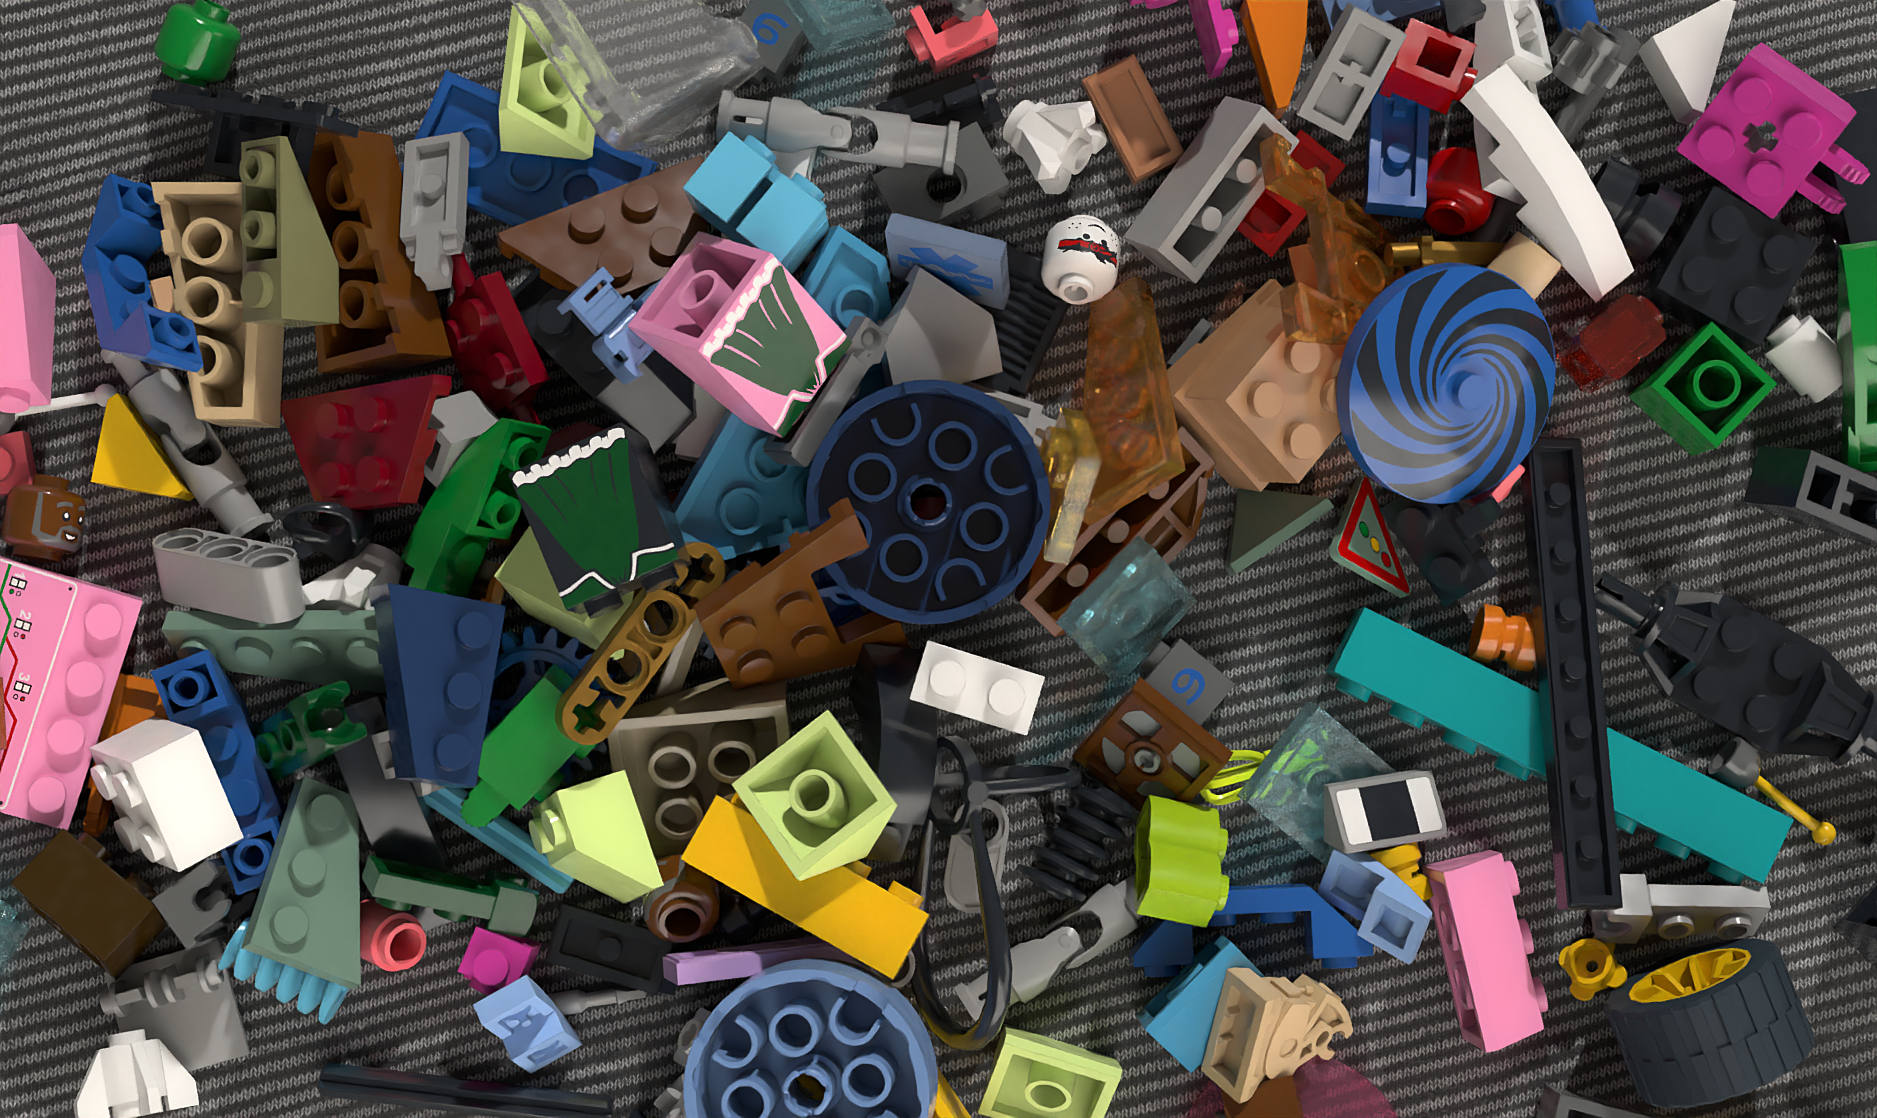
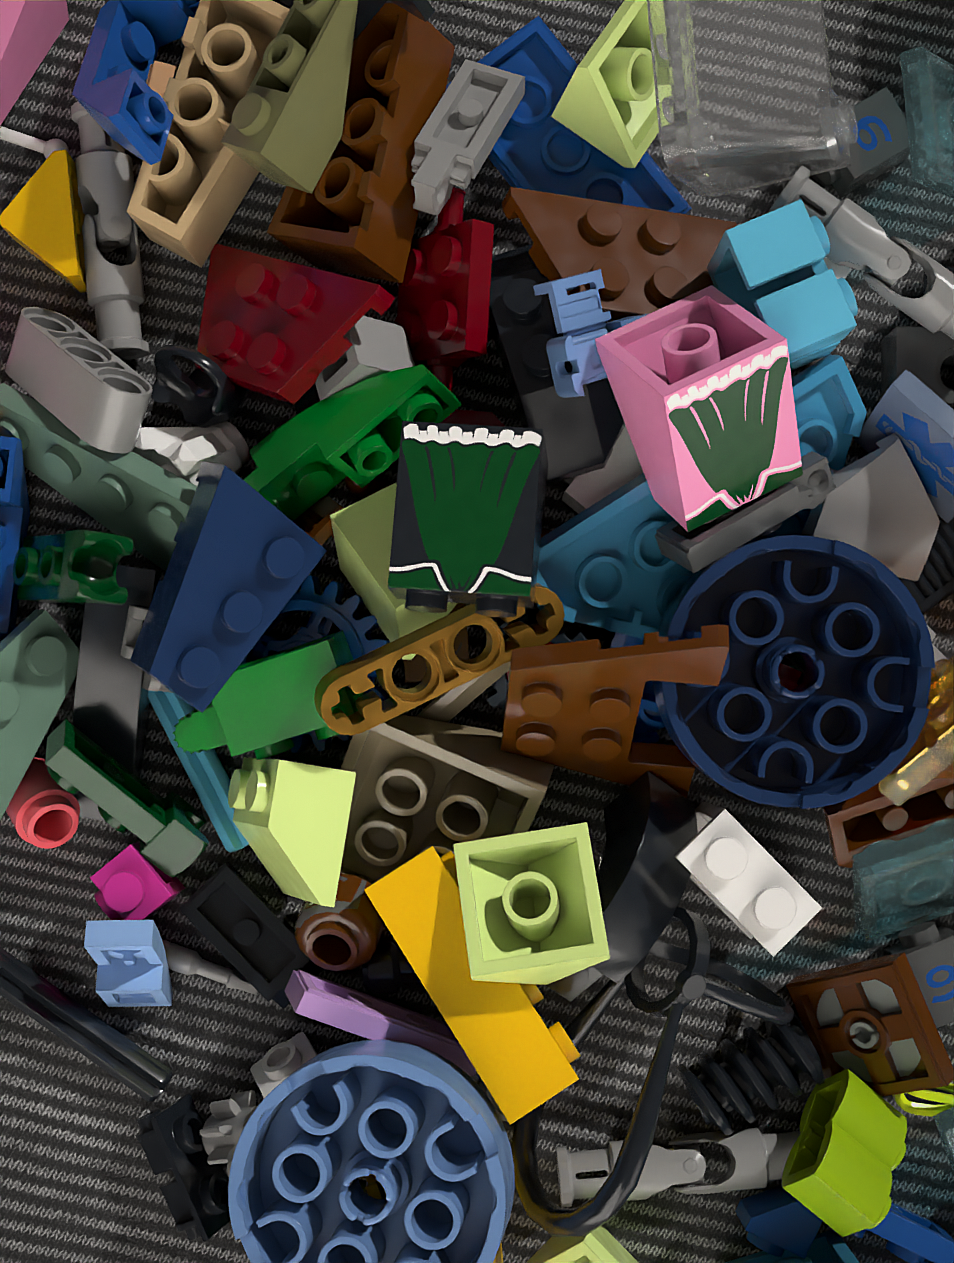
camera: 30 degrees right, 0 degrees up
(960, 870) = (631, 1037): light grey piece -> none

